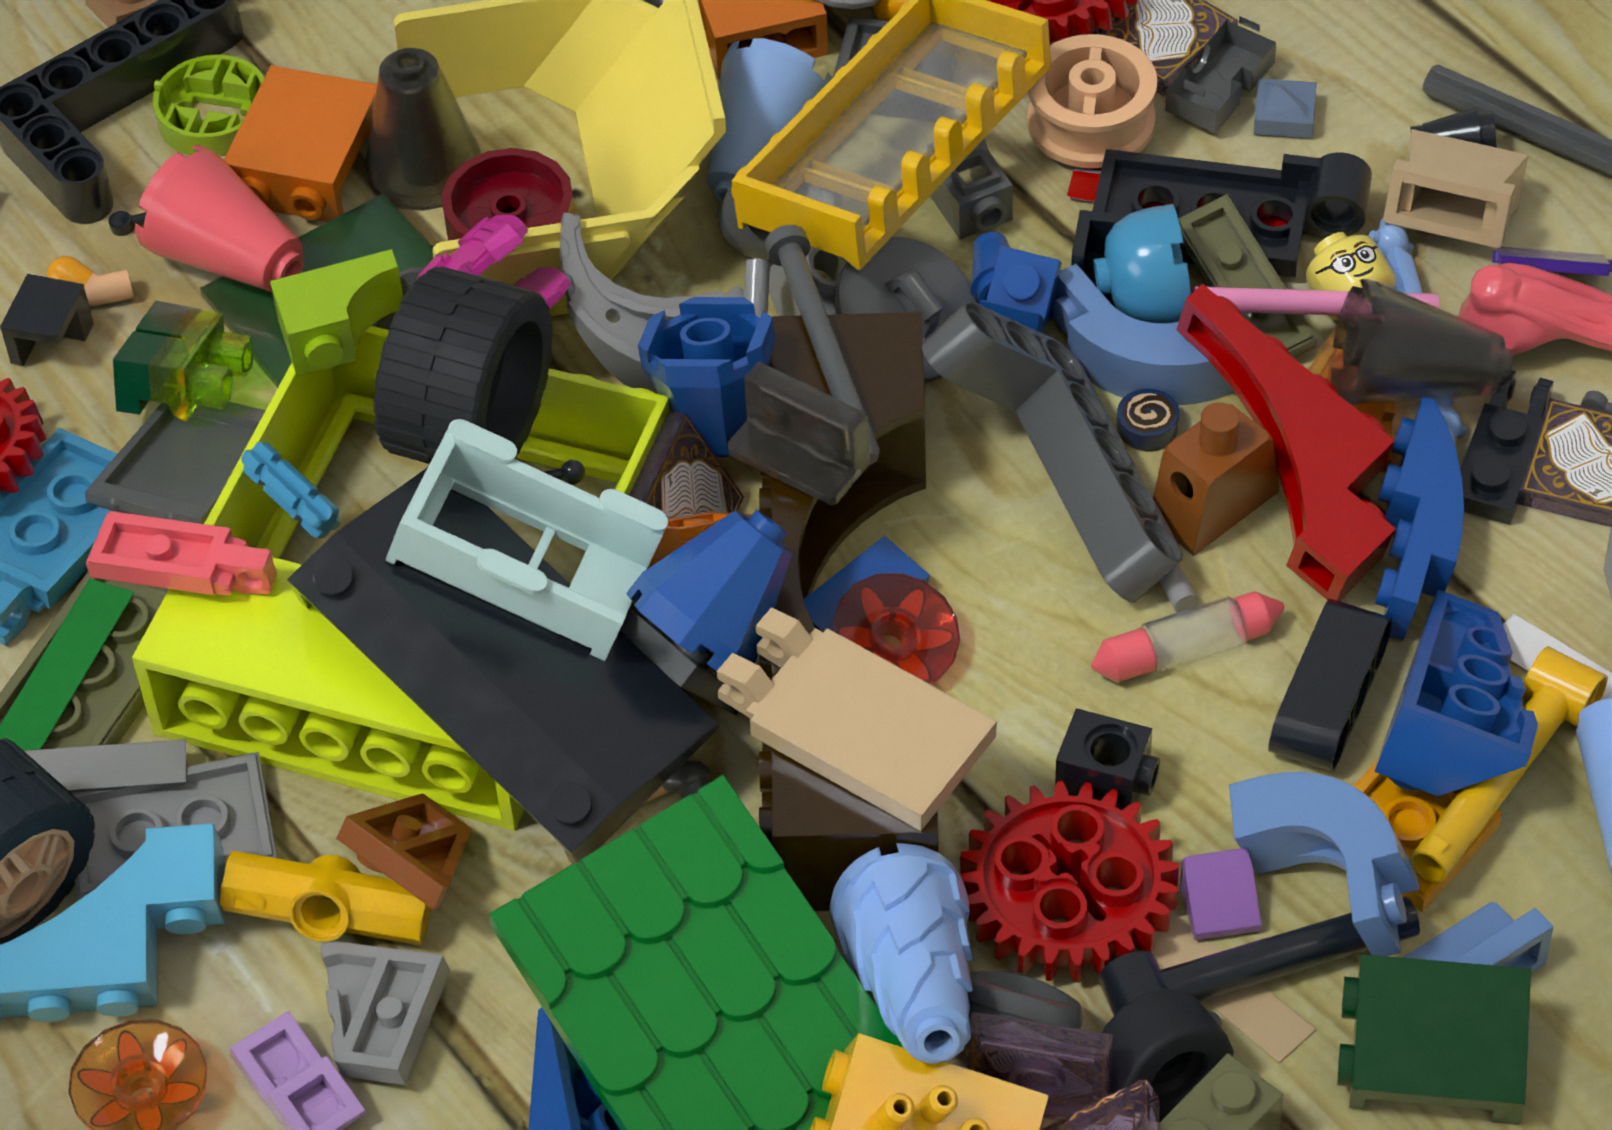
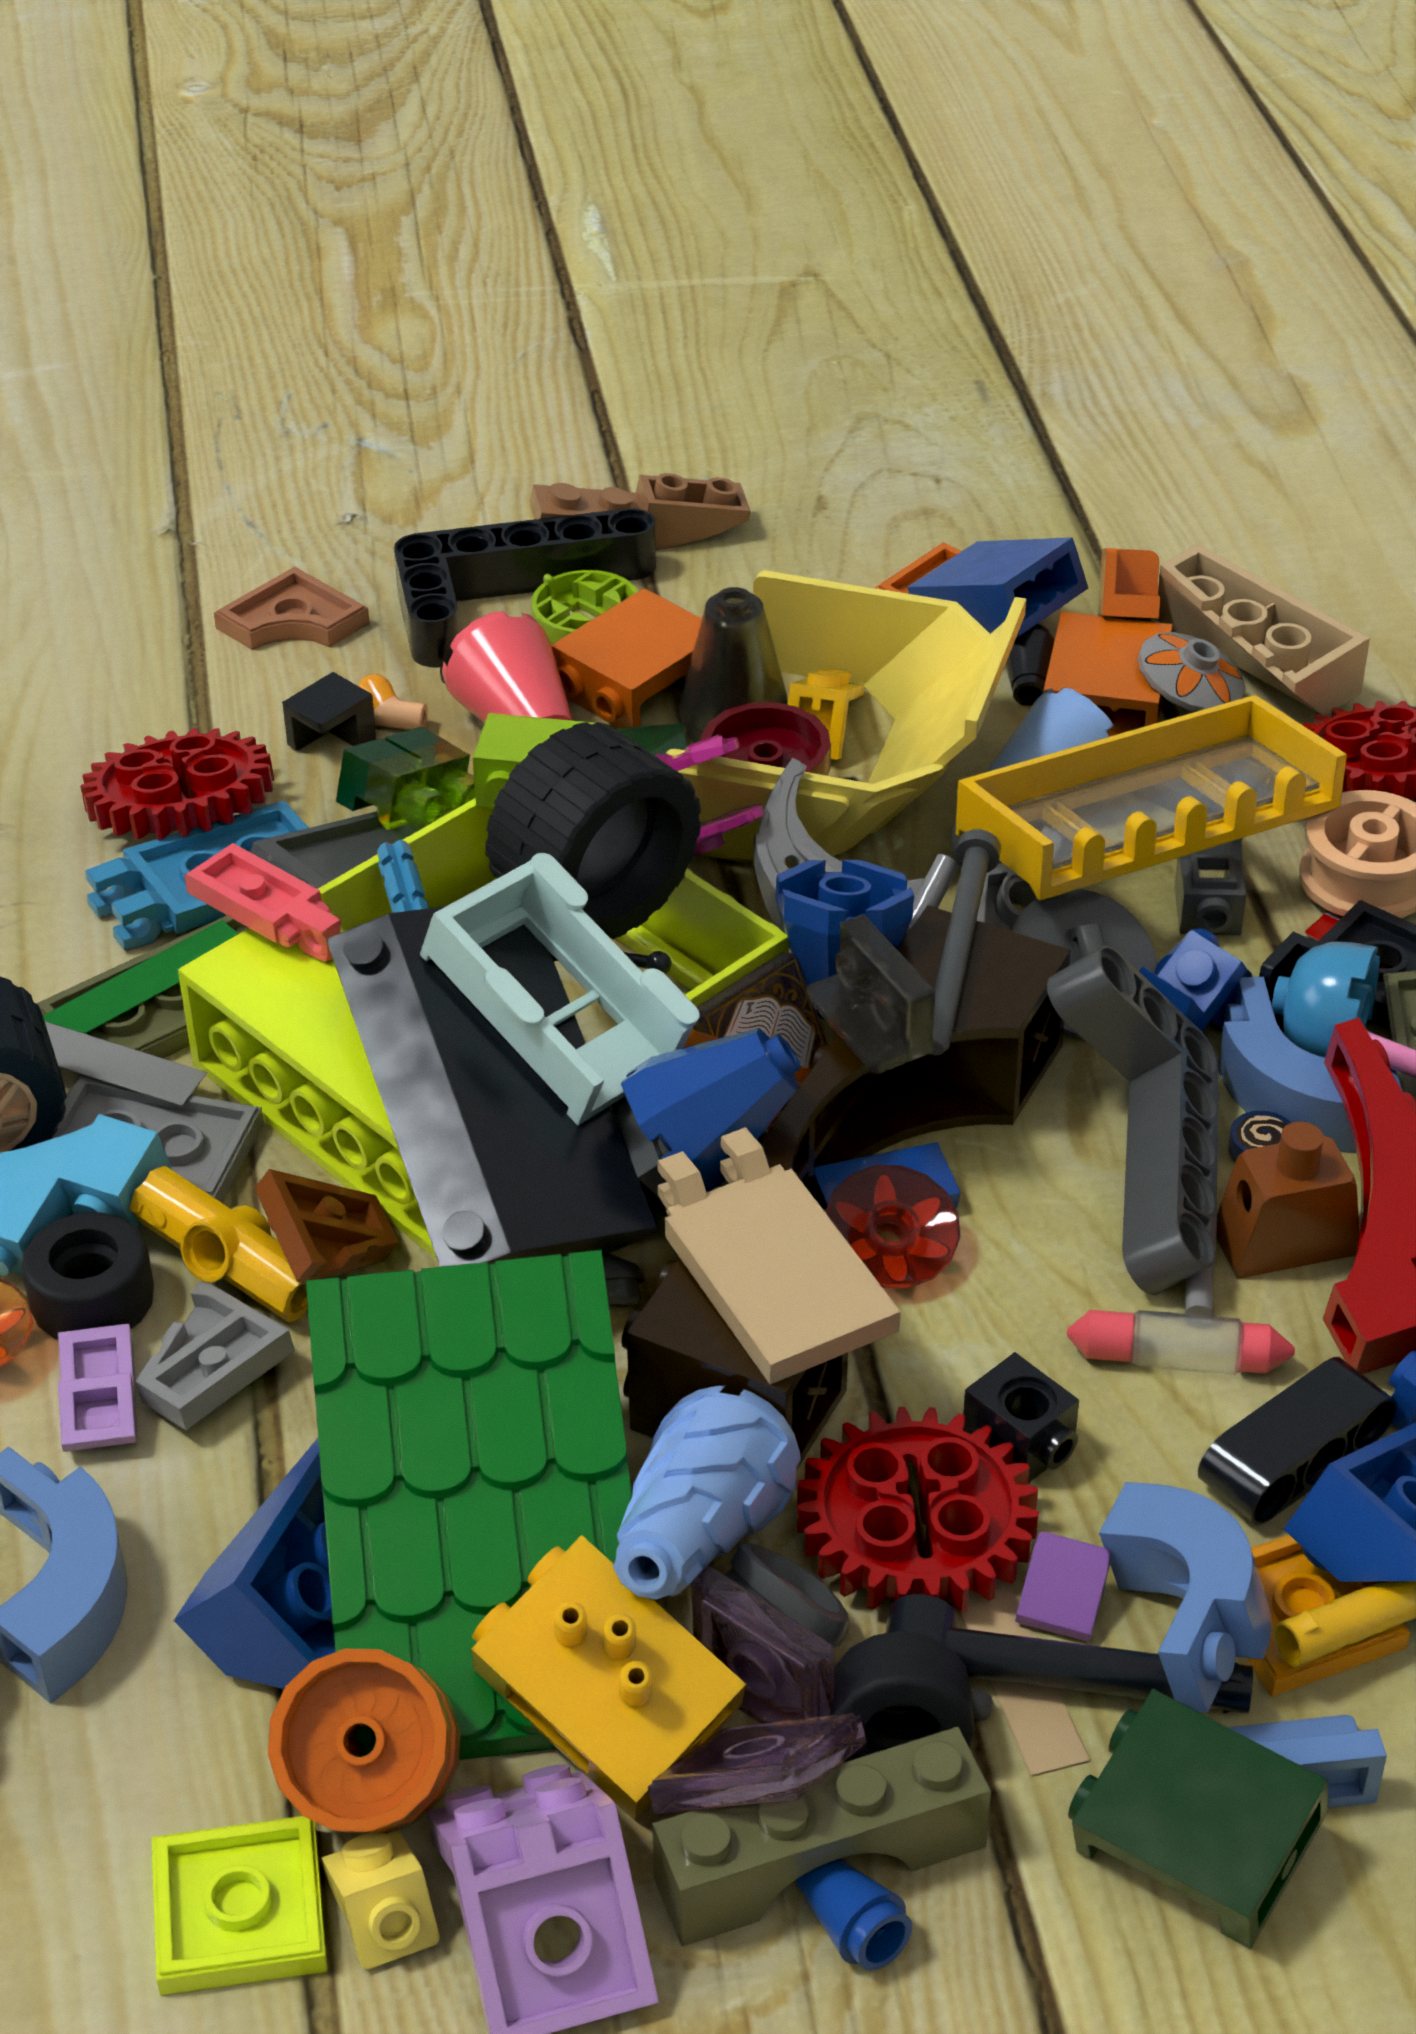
camera: 25 degrees right, 10 degrees down
(214, 949) = (80, 1248): none -> black tyre
(511, 118) = (827, 697): none -> yellow bracket

